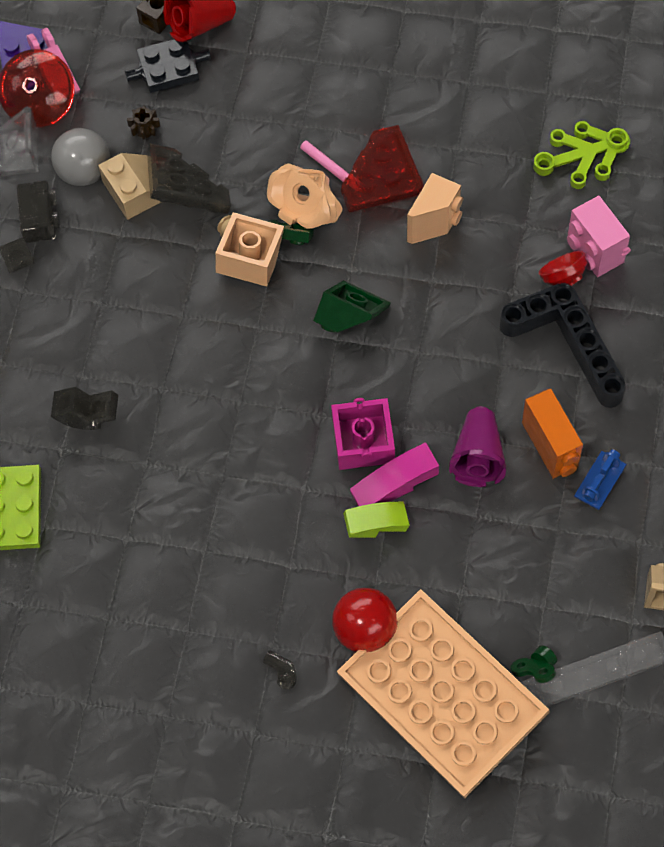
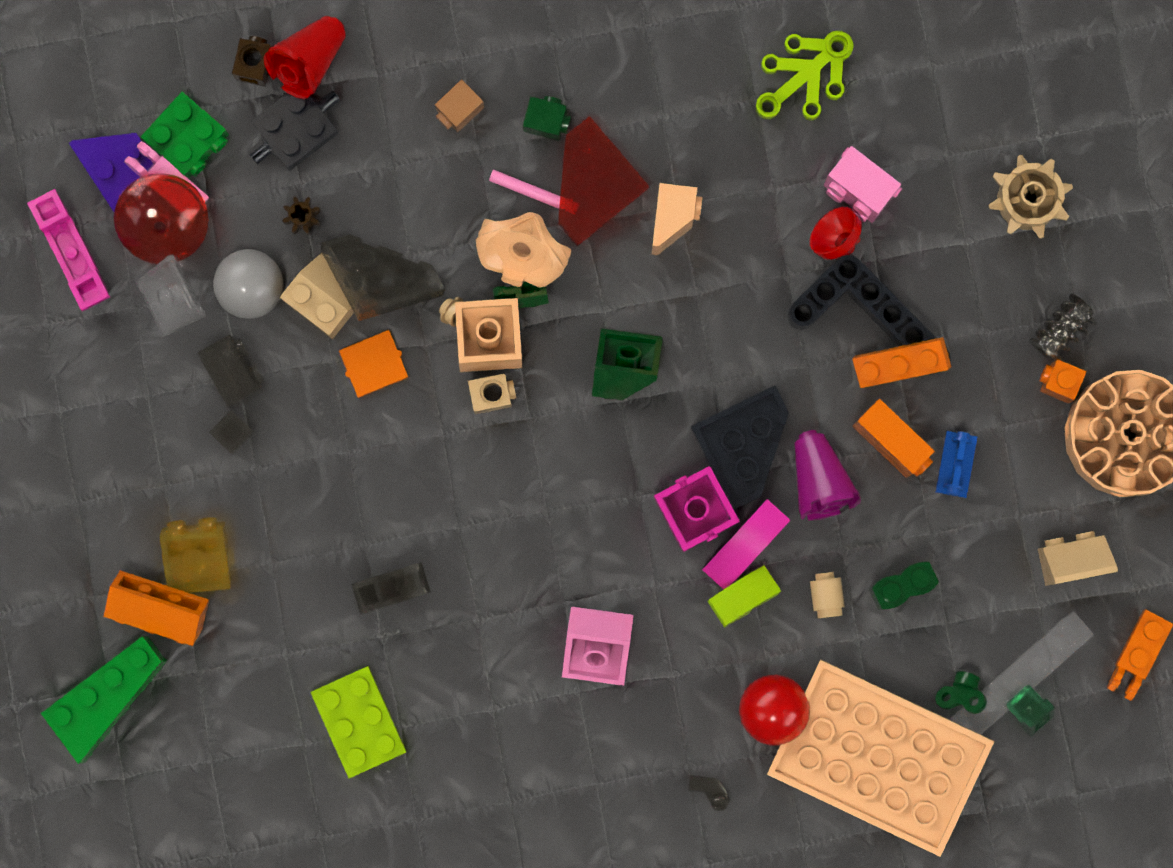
camera: 20 degrees left, 20 degrees up
(84, 44) = (186, 136): none -> green plate
(151, 246) = (373, 363): none -> orange piece
(228, 285) = (477, 390): none -> tan brick
(234, 515) = (597, 646): none -> bright pink slope
(299, 87) = (458, 106): none -> medium nougat brick
(362, 116) = (546, 118): none -> dark green brick
(424, 401) = (743, 444): none -> black plate
(448, 543) = (827, 595): none -> tan brick
(523, 557) = (910, 582): none -> dark green brick
(582, 378) = (902, 362): none -> orange plate
(594, 702) = (1030, 710): none -> clear green slope

